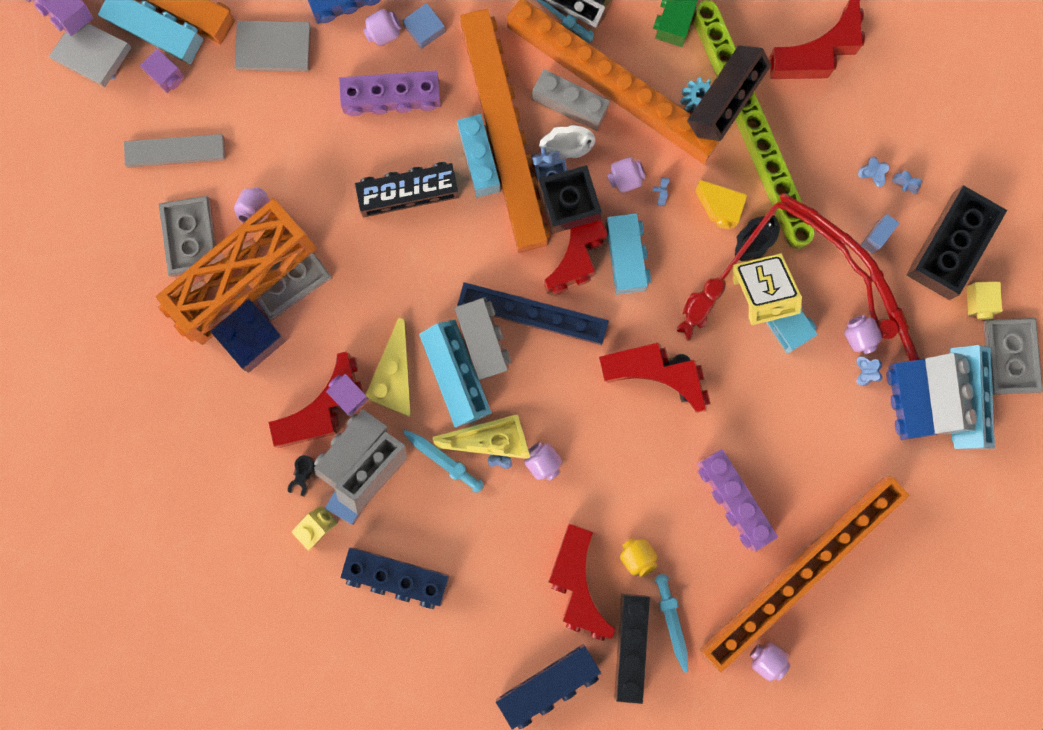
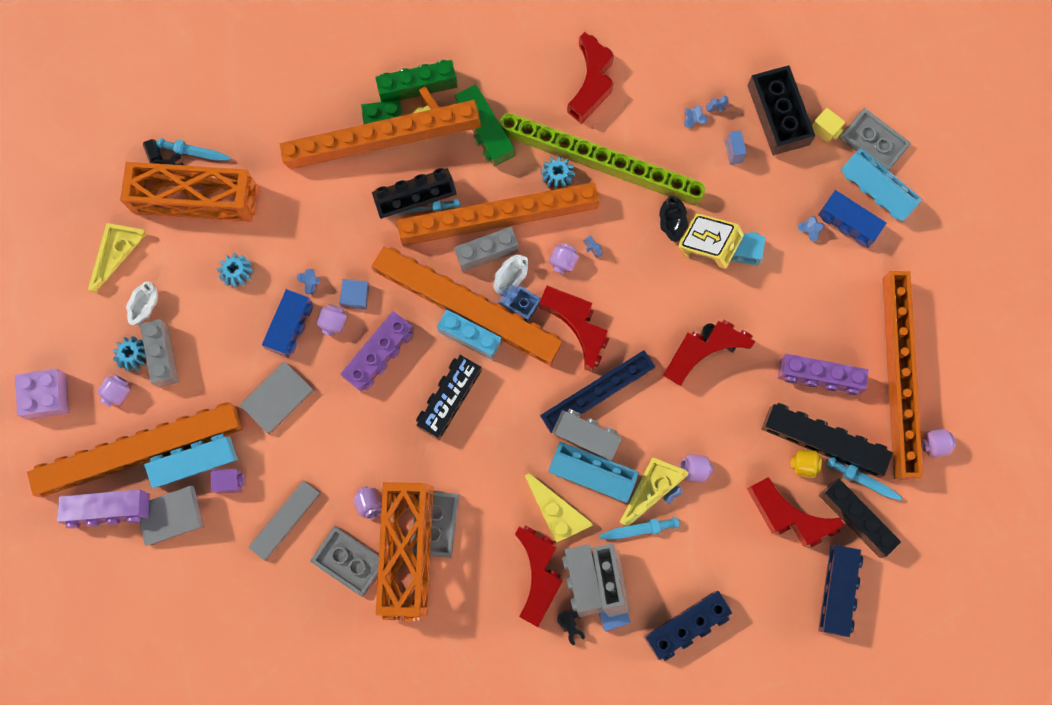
camera: 45 degrees left, 5 degrees down
(248, 336) = (450, 579): clear blue brick -> none
(314, 527) = (610, 649): light yellow bracket -> none
(346, 394) = (548, 549): medium lavender brick -> none
(569, 199) = (552, 304): black brick -> none
(627, 254) = (613, 302): medium azure brick -> none
(678, 557) = (827, 440): none -> black brick
(702, 302) = (683, 286): red piece -> none
(721, 204) = (633, 220): yellow slope -> none
(729, 93) = (575, 153): black brick -> none
(863, 334) = (787, 211): lavender head -> none
(950, 394) = (869, 194): brick -> none

